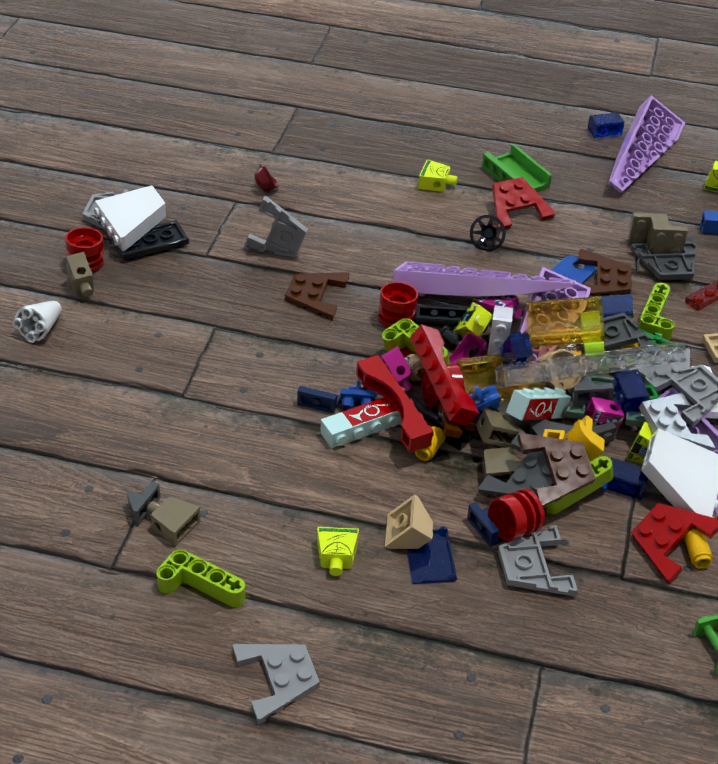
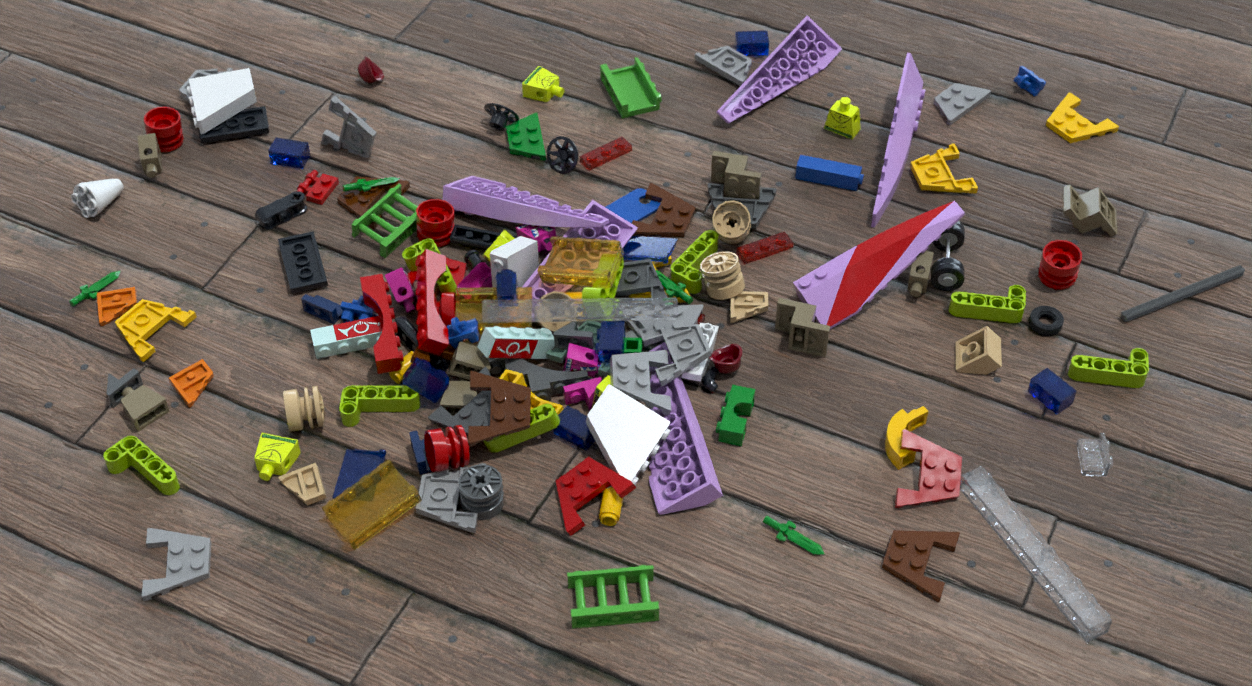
camera: 15 degrees right, 5 degrees up
(64, 414) = (87, 293): none -> green sword
(100, 421) = (115, 304): none -> orange wing
(139, 432) = (146, 319): none -> yellow wing
(214, 487) = (192, 381): none -> orange wing
(219, 259) = (289, 153): none -> clear blue brick
(235, 312) = (281, 210): none -> black piece
(264, 288) = (321, 187): none -> red plate
(278, 358) = (302, 262): none -> black plate
(306, 279) = (364, 185): none -> green sword
(350, 496) = (303, 408): none -> tan wheel
(362, 320) = (398, 234): none -> bright green fence
(381, 573) = (305, 484): none -> tan wing
(408, 526) = (347, 444): tan slope -> none
(410, 207) = (499, 118): none -> black wheel
(417, 477) = (376, 399): none -> lime beam
(441, 224) = (526, 137): none -> green wing
(462, 583) = (371, 504): none -> clear yellow panel
(463, 451) = (426, 379): none -> clear blue brick
(517, 195) = (611, 116): red wing -> none
(522, 229) = (605, 153): none -> clear red plate
(569, 551) = (481, 491): none -> dark grey wheel
(583, 433) = (542, 386): yellow brick -> none
(592, 143) = (727, 63): none -> light grey wing
(618, 443) = (581, 391): none -> dark pink slope
(684, 267) = (734, 212): none -> tan wheel
(694, 320) = (722, 275): none -> tan wheel

